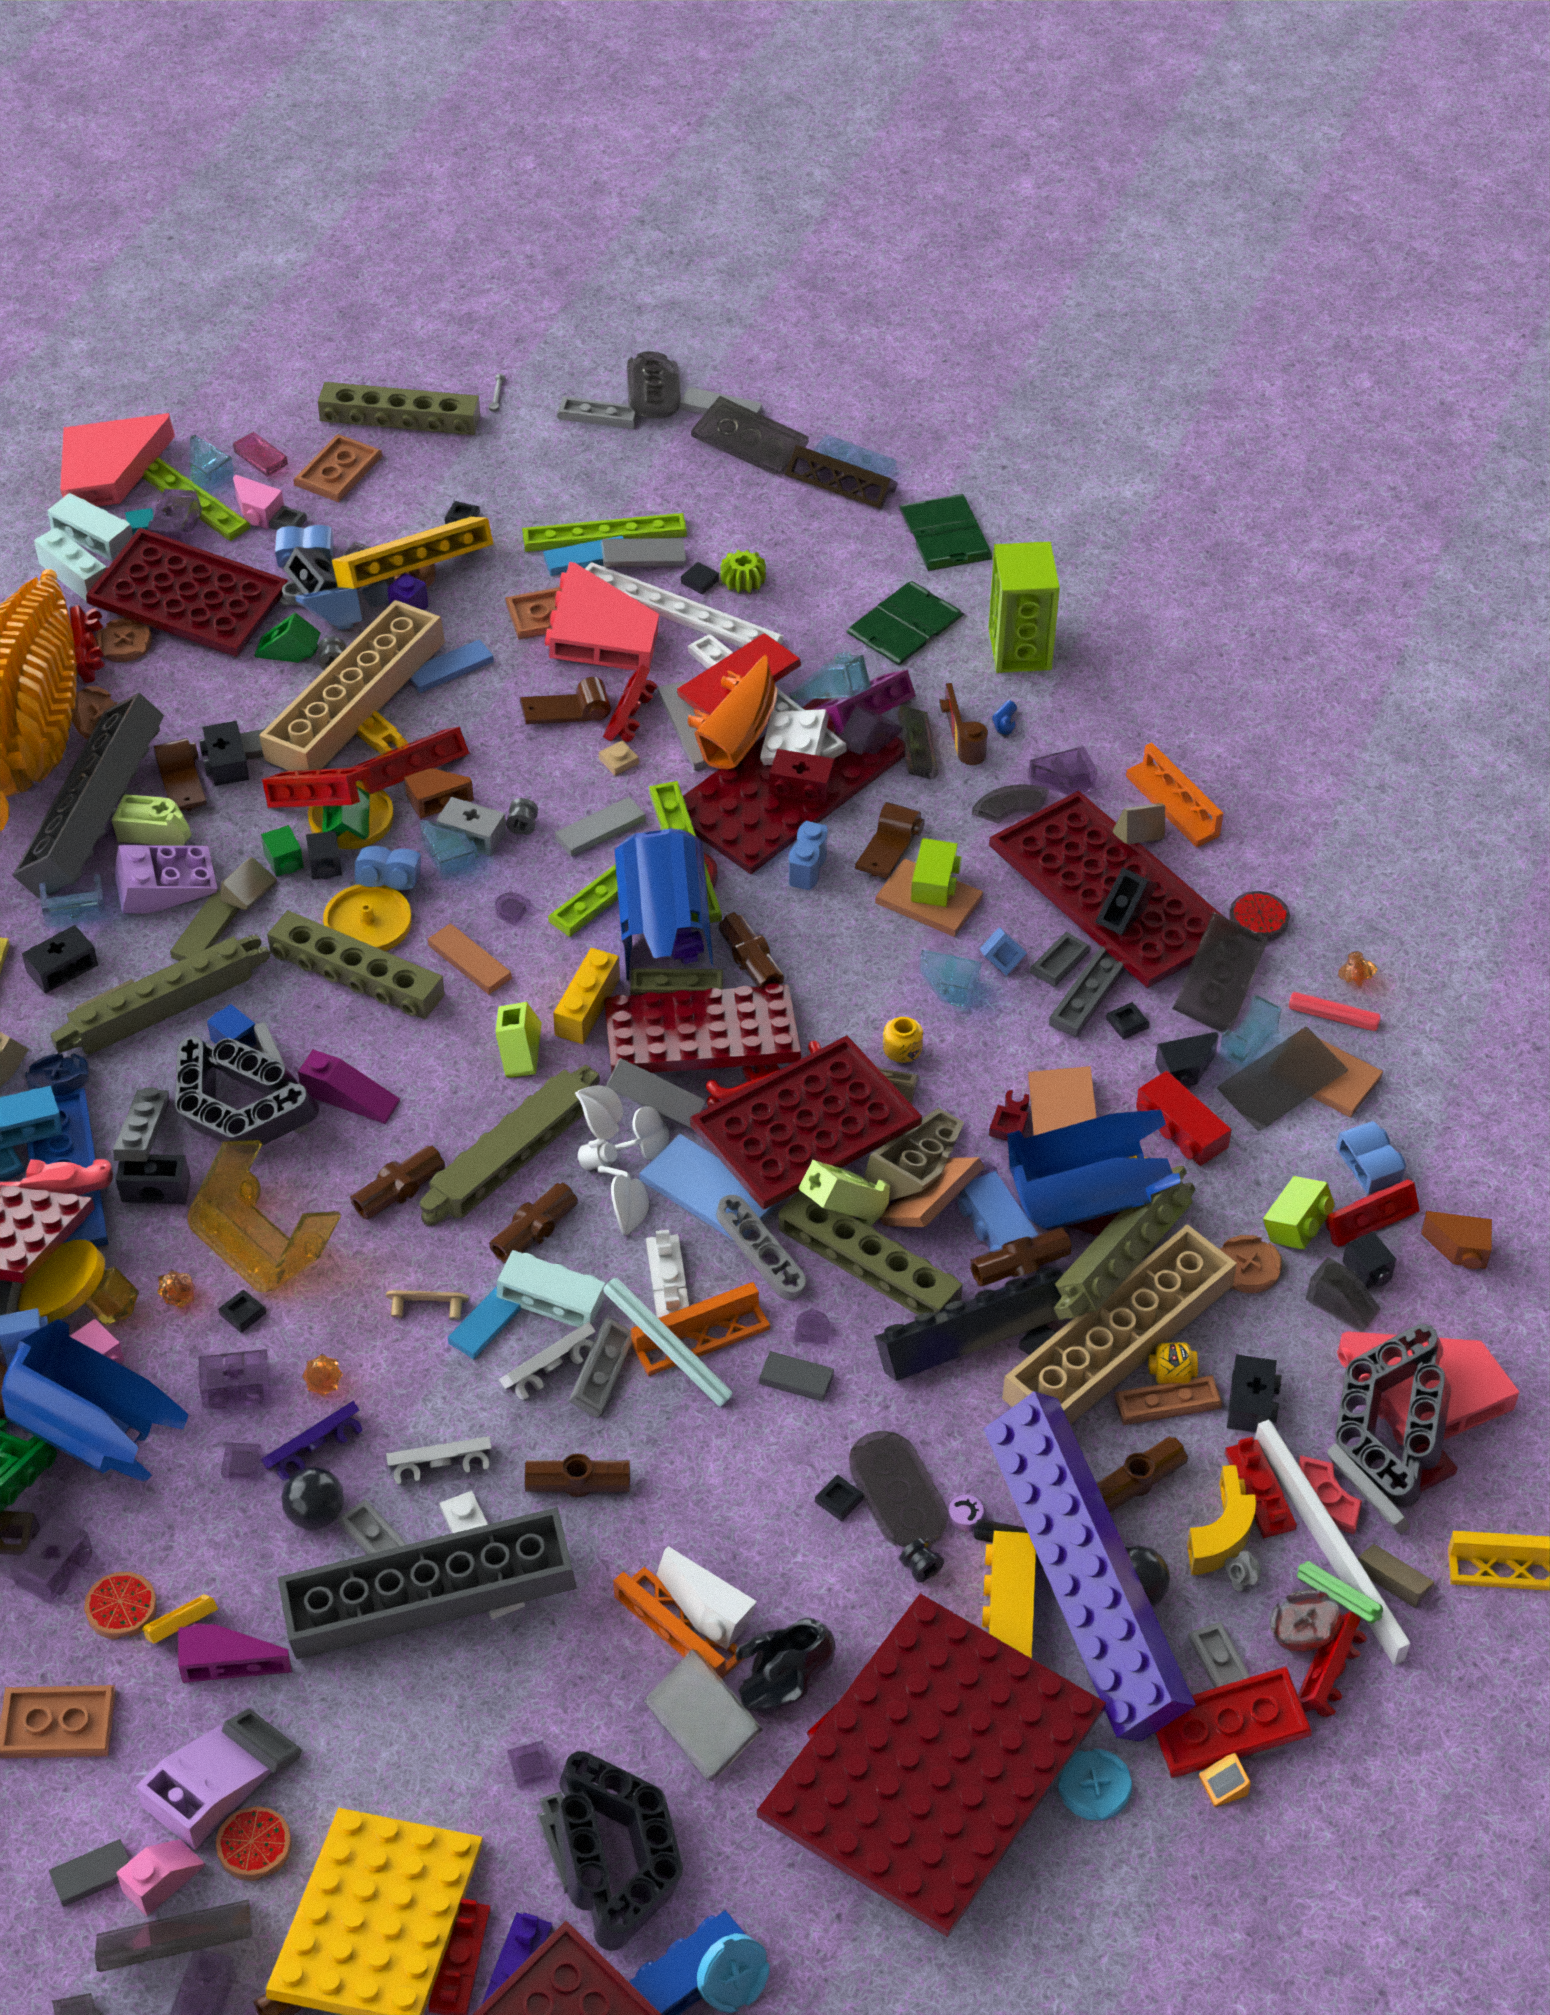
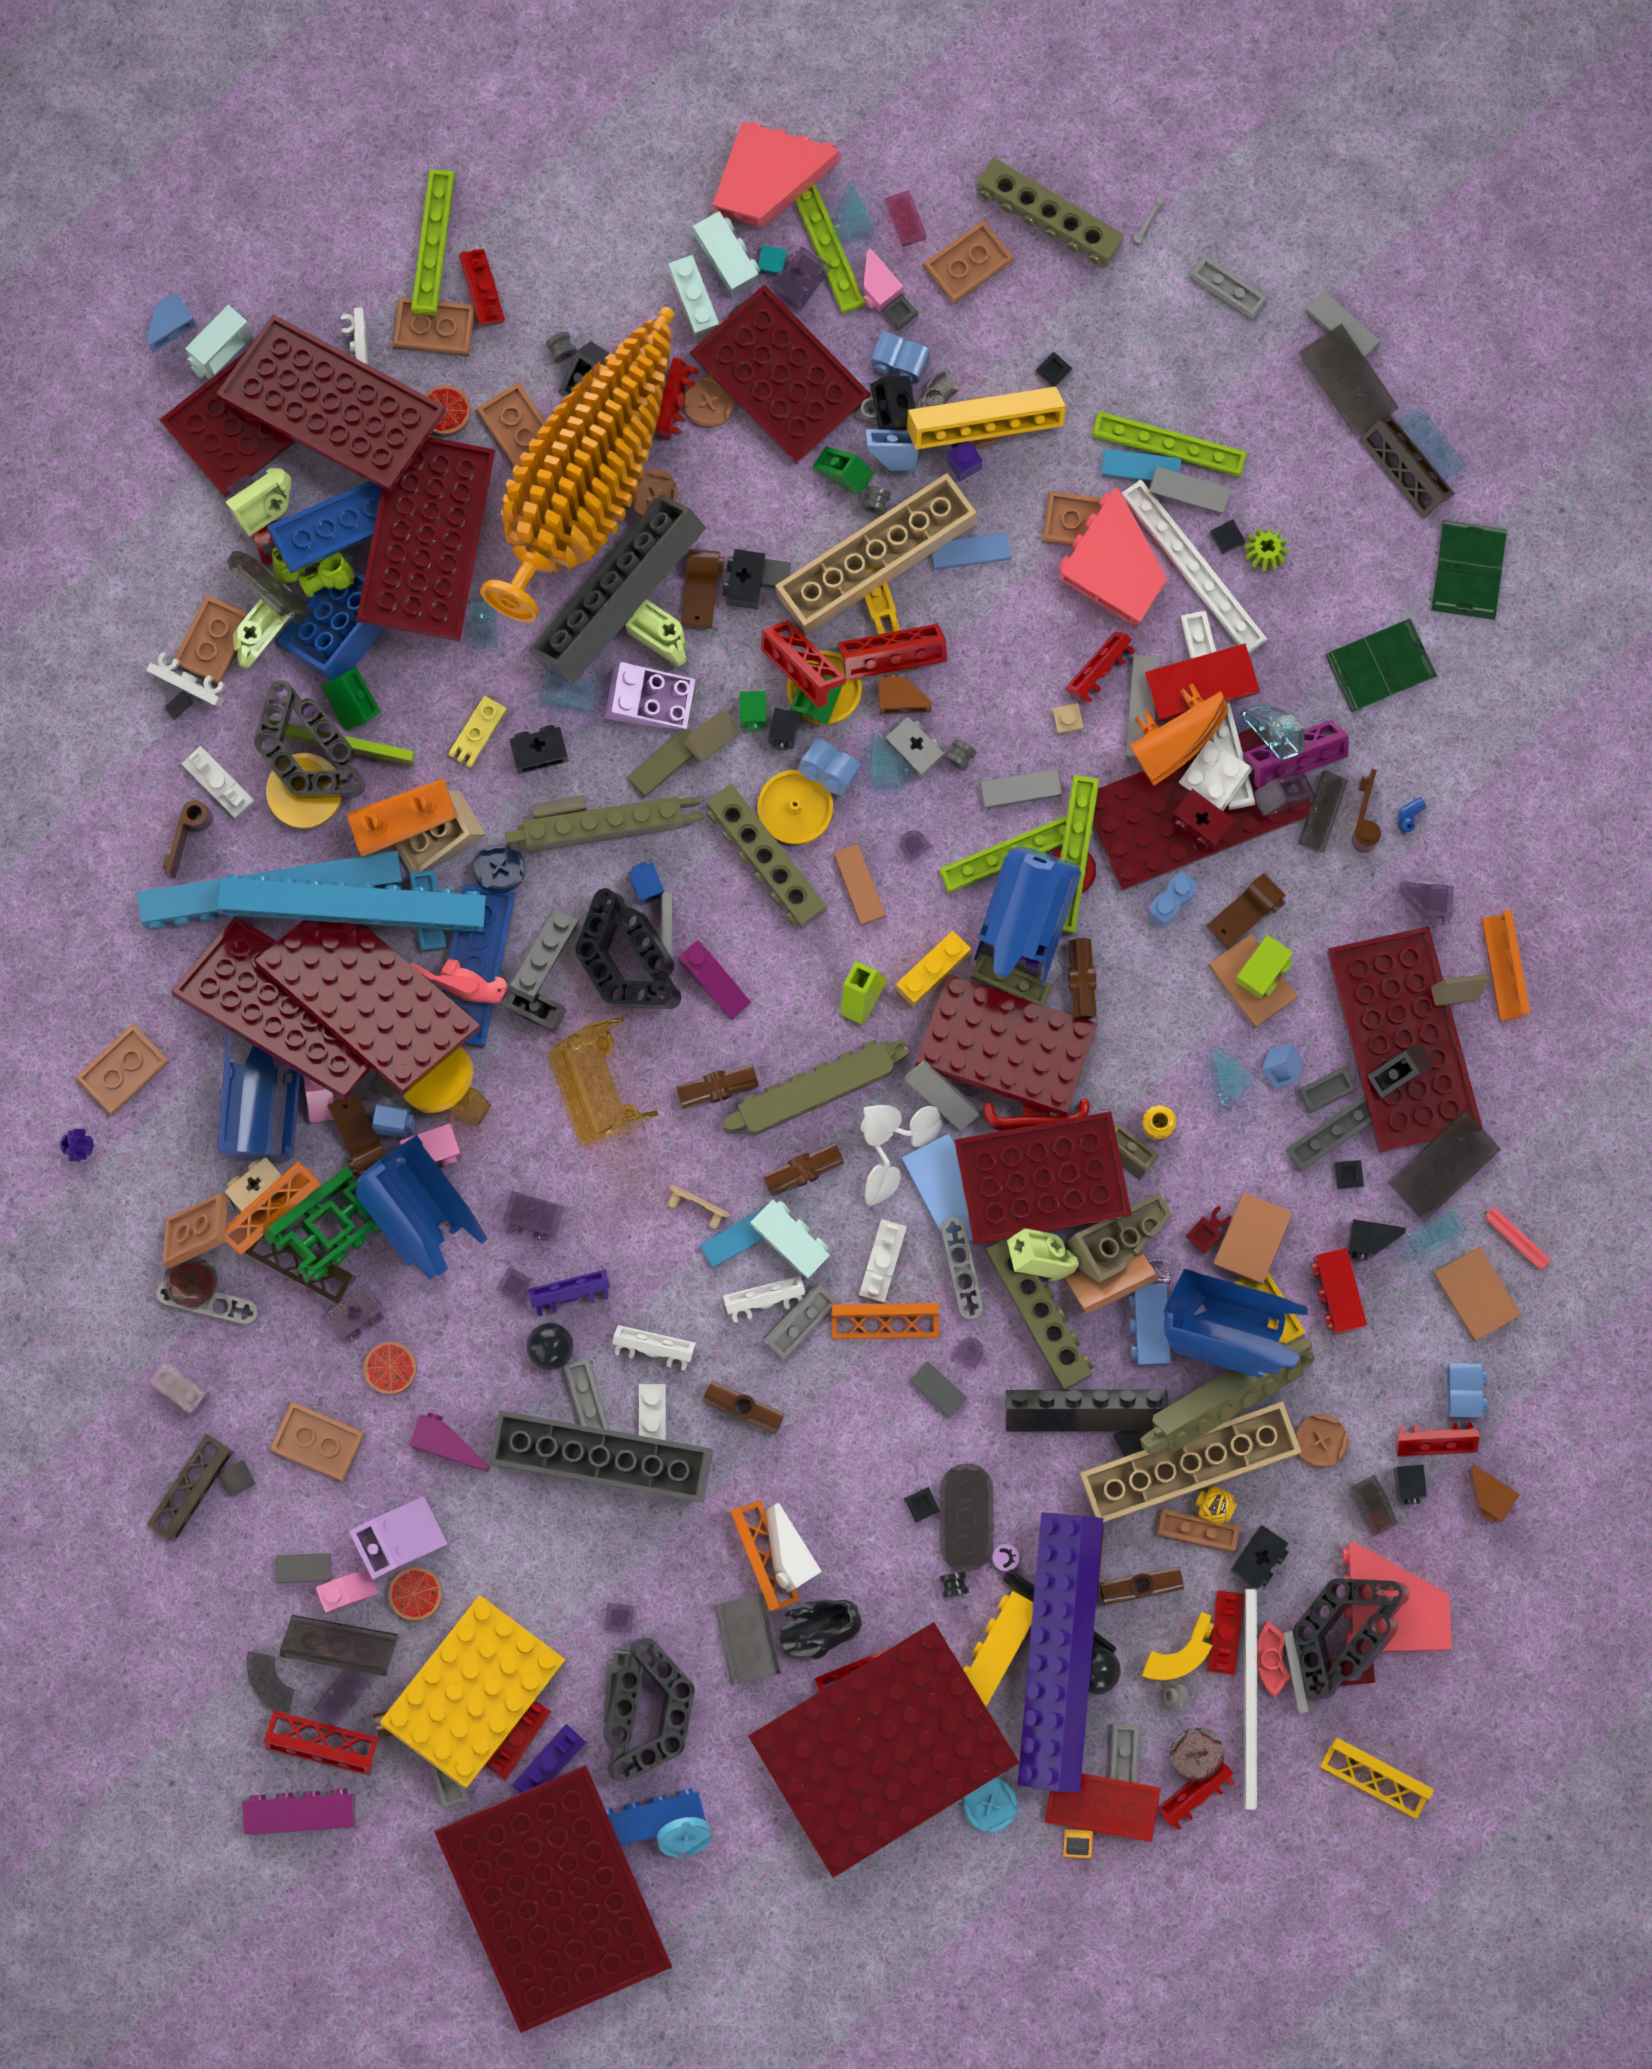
camera: 25 degrees right, 30 degrees up
(176, 1288) = (519, 1114): clear orange piece -> none
(179, 1617) = (425, 1401): yellow tile -> none
(242, 1311) = (561, 1152): black tile -> none
(261, 1740) = (447, 1520): dark grey tile -> none
(322, 1375) = (597, 1238): clear orange piece -> none
(586, 705) = (1048, 643): reddish brown door -> none
(653, 385) = (1291, 274): clear smoke tile -> none
(667, 1341) = (852, 1329): light aqua axle -> none
(1010, 800) = (1369, 906): clear smoke tile -> none
(1020, 1256) = (1145, 1373): reddish brown piece -> none
(1023, 606) = (1473, 722): lime brick -> none
(1261, 913) = (1510, 1117): tile -> none
(1282, 1079) = (1438, 1287): clear smoke piece -> none
(1298, 1212) = (1379, 1419): lime brick -> none
(1340, 1591) = (1231, 1745): axle -> none
(1357, 968) = (1556, 1209): clear orange piece -> none
(1395, 1575) = (1283, 1743): dark tan slope -> none

